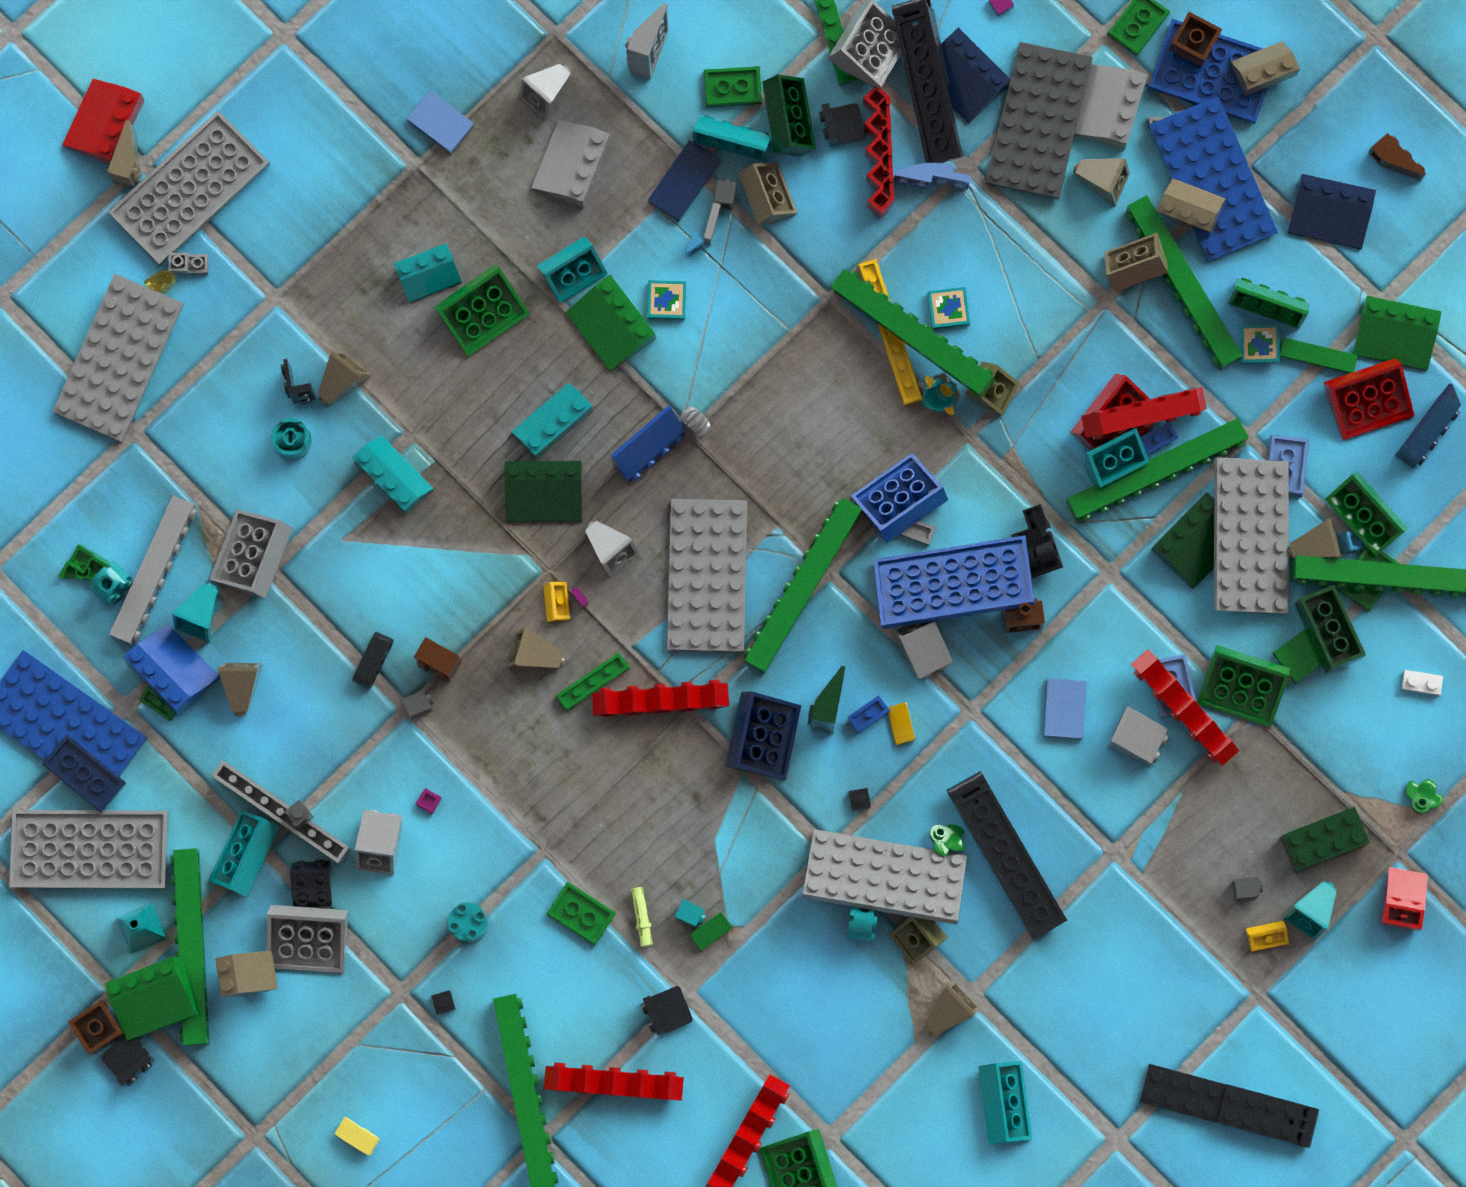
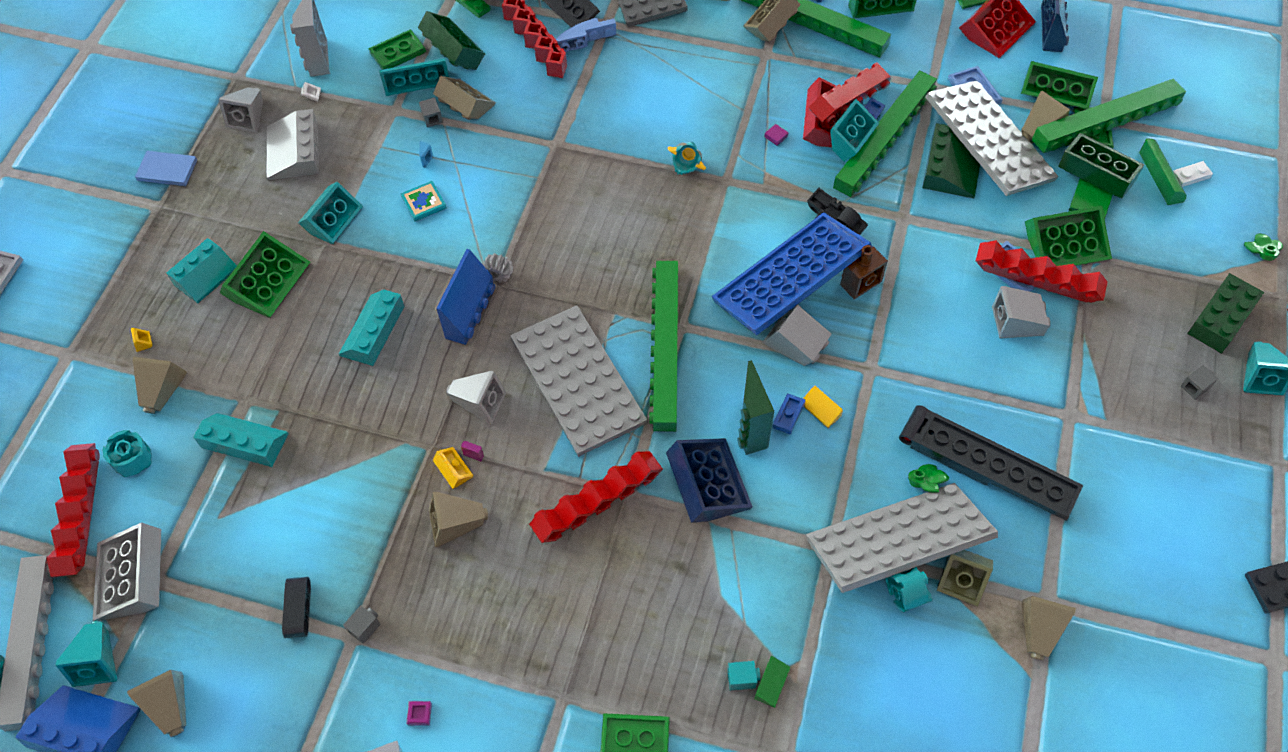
camera: 30 degrees left, 20 degrees down
(229, 469) = (74, 510): none -> red brick
(299, 394) = (119, 408): black bracket -> none
(345, 318) = (141, 339): none -> yellow slope
(437, 659) = (361, 569): reddish brown brick -> none
(543, 491) = (391, 382): dark green slope -> none
(592, 682) = (519, 523): green tile -> none
(611, 323) = (385, 234): green slope -> none
(620, 97) = (310, 91): none -> white slope
(643, 925) = (703, 713): yellowish green pin -> none
(684, 180) = (392, 120): dark blue tile -> none
(712, 222) = (431, 135): light grey tile -> none
(842, 124) = (495, 35): black bracket -> none
(859, 799) = (828, 487): black plate -> none
(894, 347) = (619, 143): yellow tile -> none
(899, 497) = (704, 242): blue slope -> none
(913, 333) = (638, 125): green brick -> none
(920, 532) = (729, 261): light grey tile -> none
(948, 308) = (652, 107): tile -> none
(999, 393) = (722, 138): olive slope -> none
(1005, 1102) = (1157, 685): teal slope -> none
(1050, 410) = (776, 134): none -> magenta tile
(1065, 708) = (945, 327): medium blue tile -> none
(1260, 344) = (898, 25): tile -> none
(1267, 936) = (1245, 411): yellow slope -> none
(1318, 355) = (940, 17): green tile -> none
(1393, 666) = (1162, 172): none -> green brick

